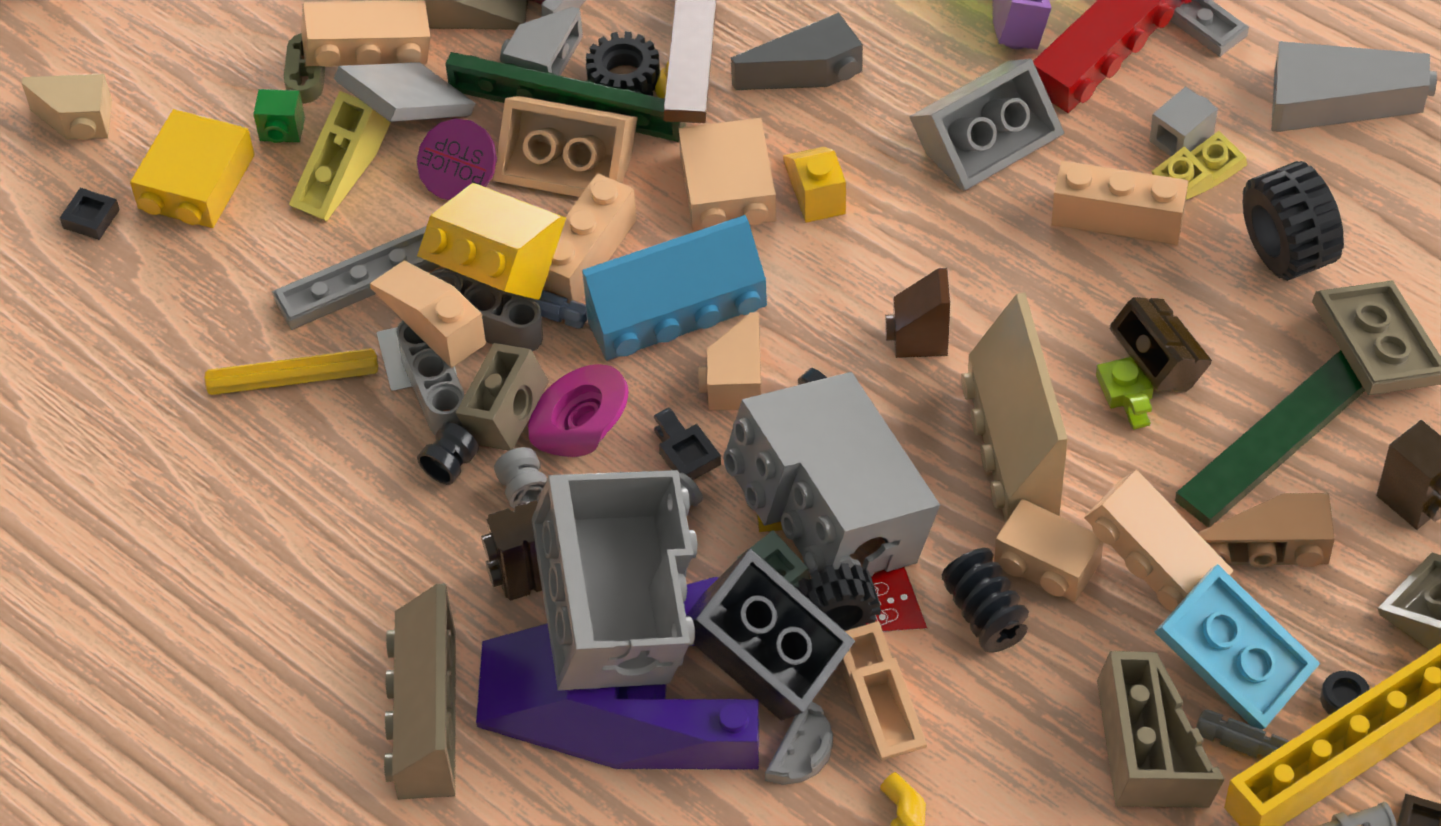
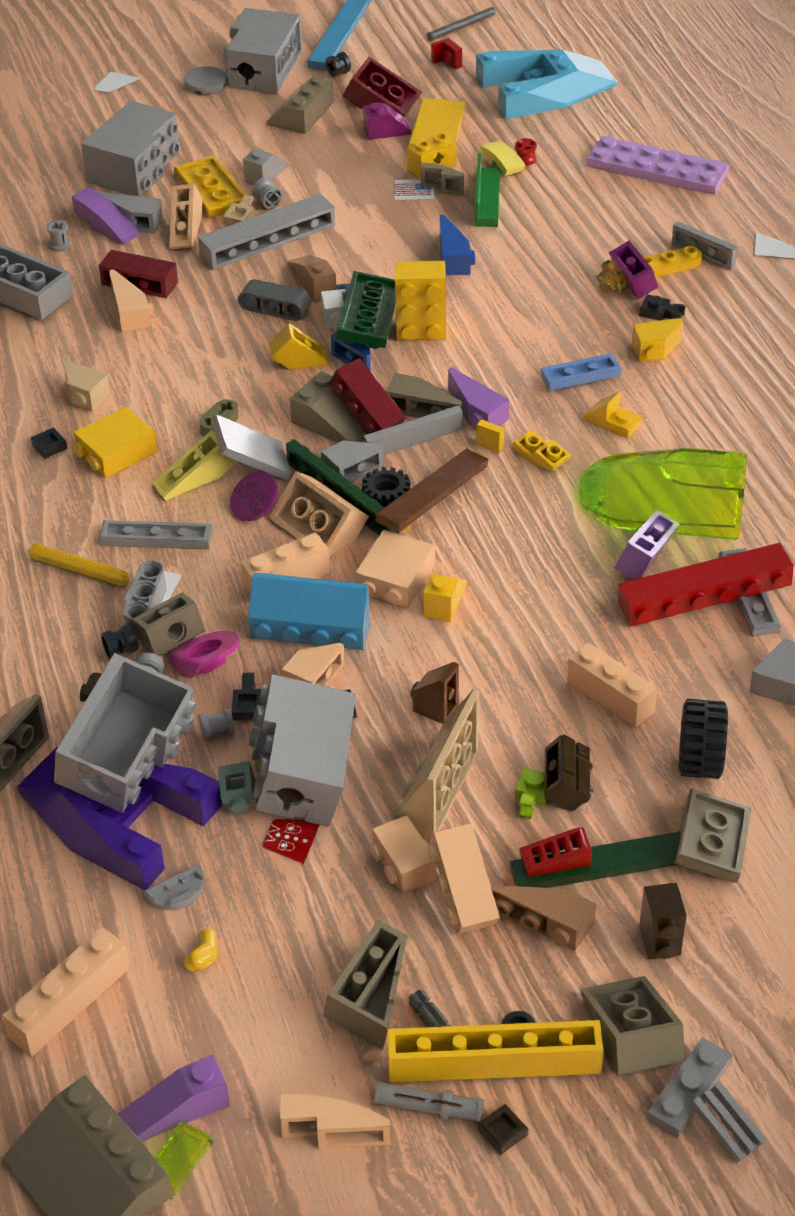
camera: 30 degrees right, 10 degrees down
(279, 115) = (181, 434): green plate -> none
(365, 32) = (259, 411): light nougat brick -> none
(432, 311) = (162, 563): light nougat slope -> none
(494, 240) = (226, 540): yellow slope -> none
(505, 316) = (201, 578): dark grey beam -> none
(557, 308) = (237, 589): sand blue axle -> none
(768, 636) = (192, 811): black slope -> none
(801, 59) = (493, 527): dark grey slope -> none
(843, 595) = (252, 818): black tyre -> none
(881, 694) = (240, 879): light nougat slope -> none
(986, 600) = (343, 862): black piece -> none
(988, 123) = (570, 608): light grey slope -> none
(1183, 122) = (690, 660): light grey brick -> none
(1205, 165) = (675, 691): light yellow slope -> none
(1237, 648) = (465, 962): medium azure plate -> none
(1245, 430) = (564, 841): none -> red slope

